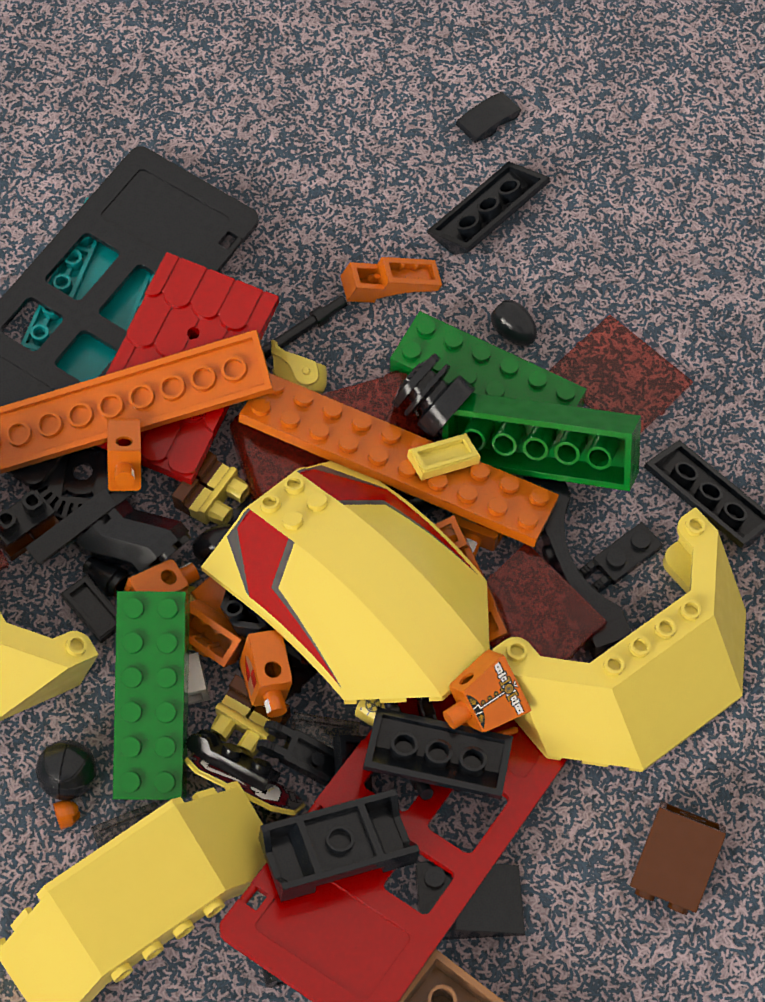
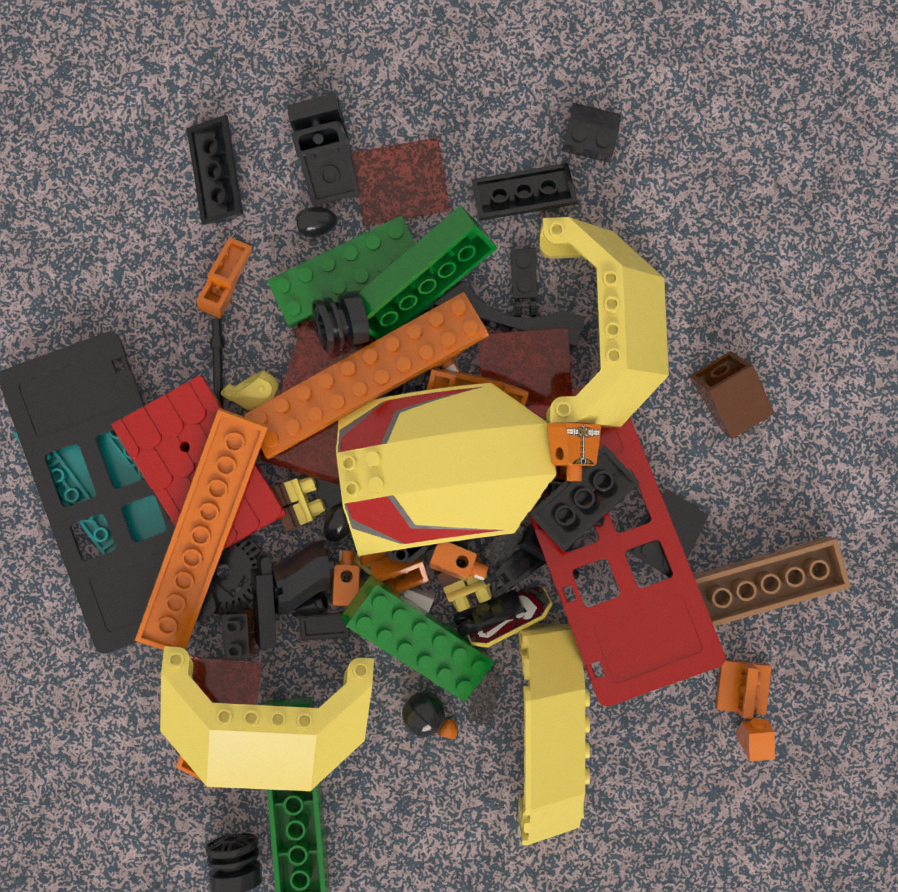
camera: 50 degrees left, 25 degrees up
(124, 461) = (254, 558): orange torso -> none
(336, 844) = (601, 600): black piece -> none
(443, 456) = (390, 348): light yellow tile -> none
(487, 116) = (141, 115): black slope -> none
(590, 280) = (323, 148): none -> black piece

